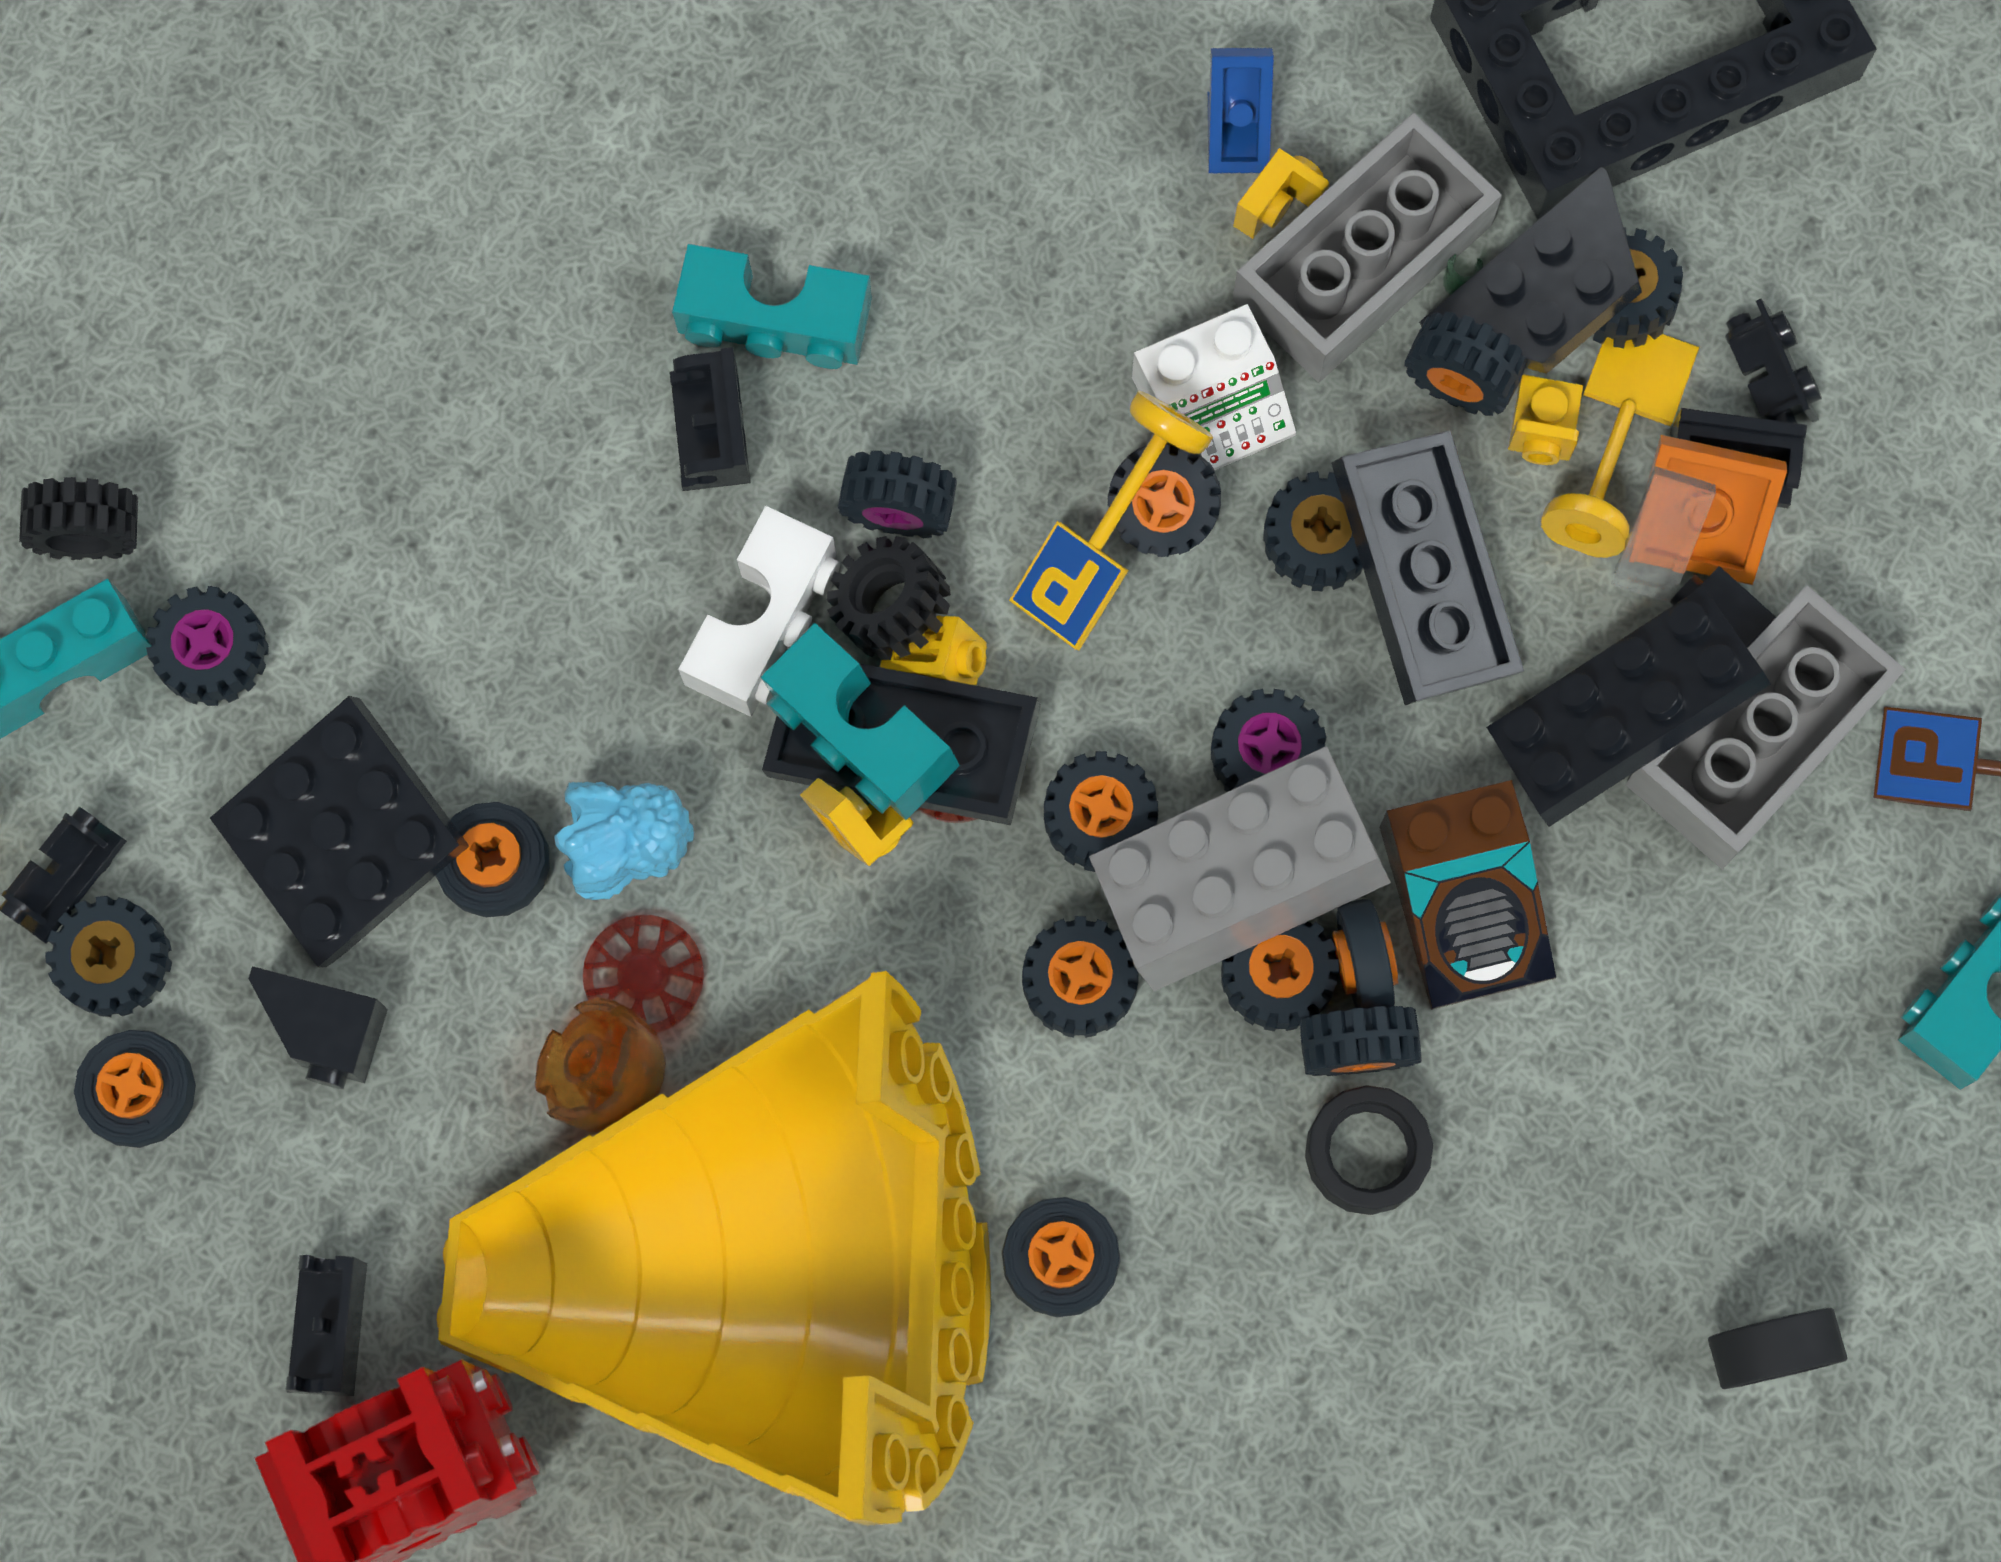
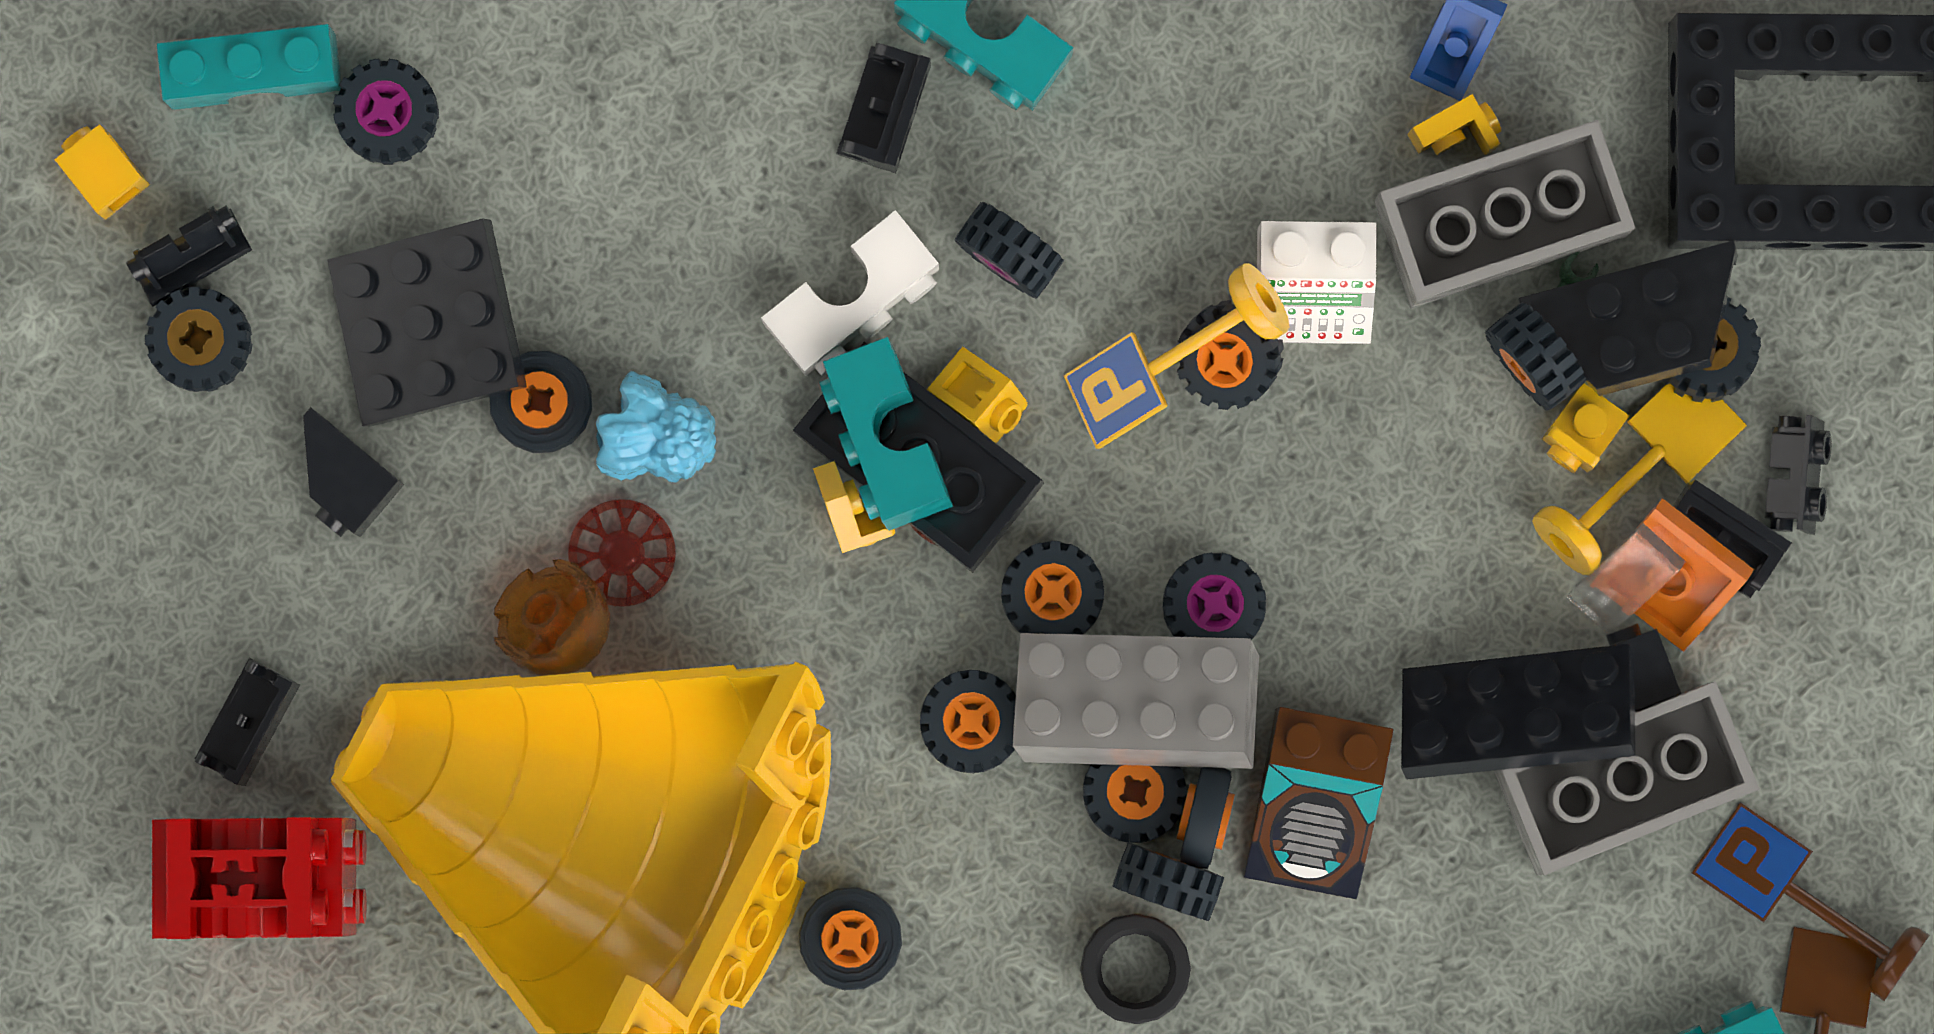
camera: 20 degrees right, 10 degrees up
(113, 1077) = (160, 445): black wheel -> none
(870, 578) = (947, 311): black tyre -> none
(1306, 553) = (1323, 449): black wheel -> none
(1427, 567) = (1416, 516): plate -> none

